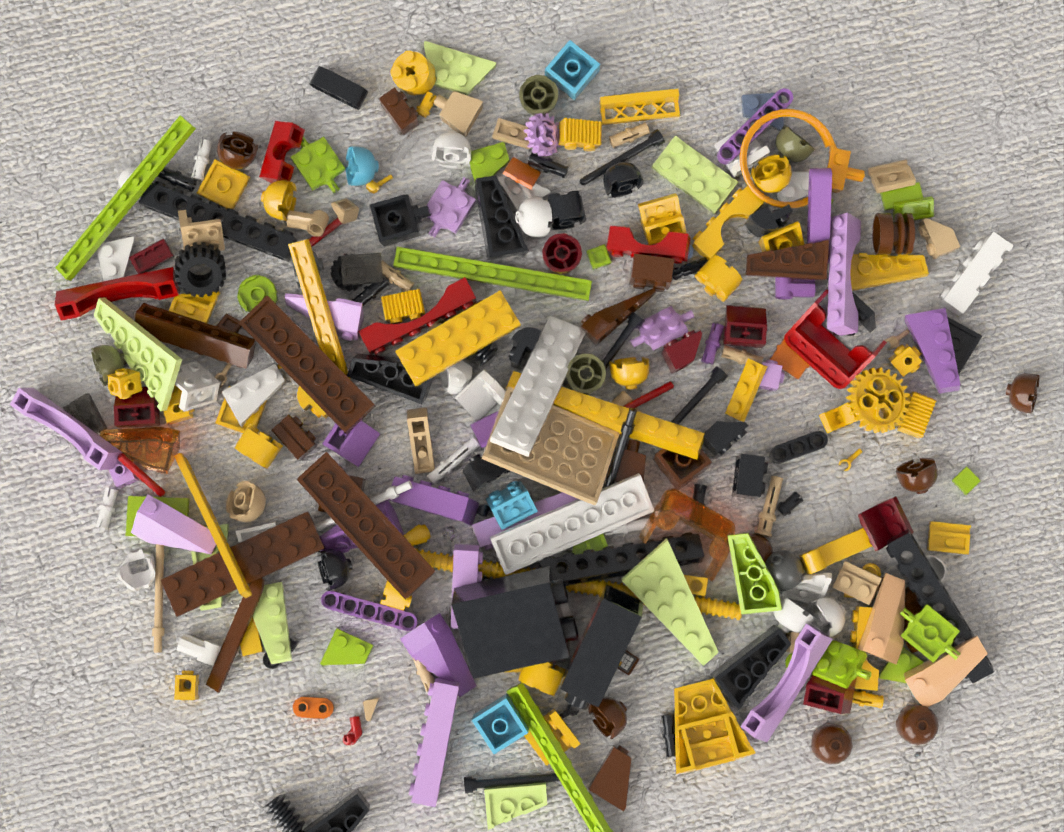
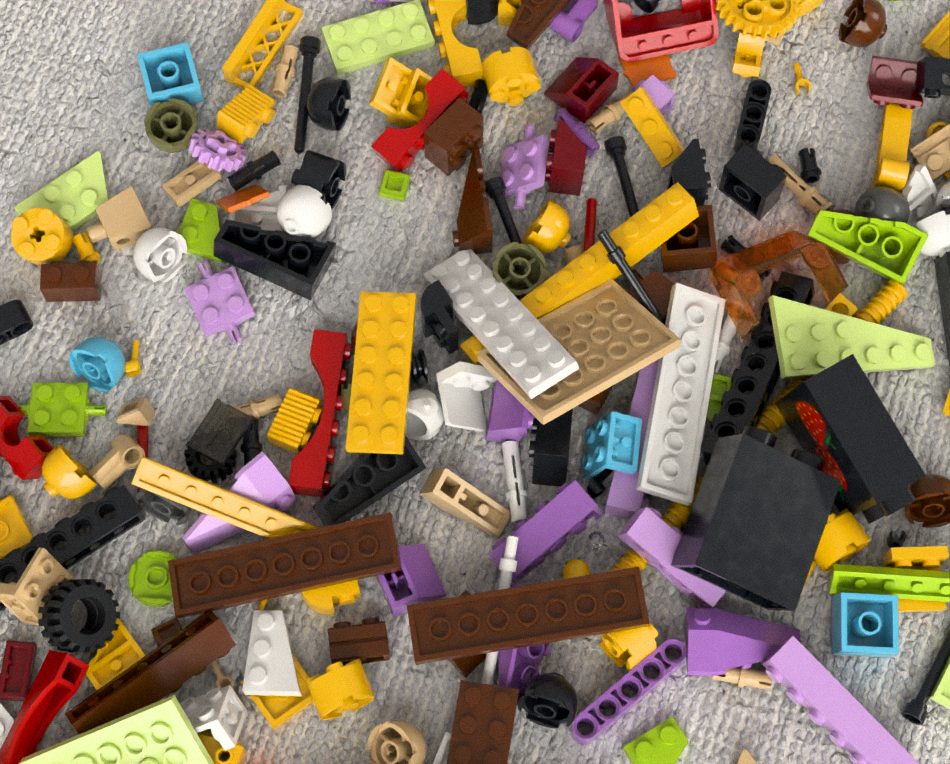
camera: 55 degrees left, 15 degrees down
(407, 213) = (184, 348): black hinge -> none
(492, 273) = (328, 305): lime plate -> none
(562, 253) = (365, 212): dark red cylinder -> none

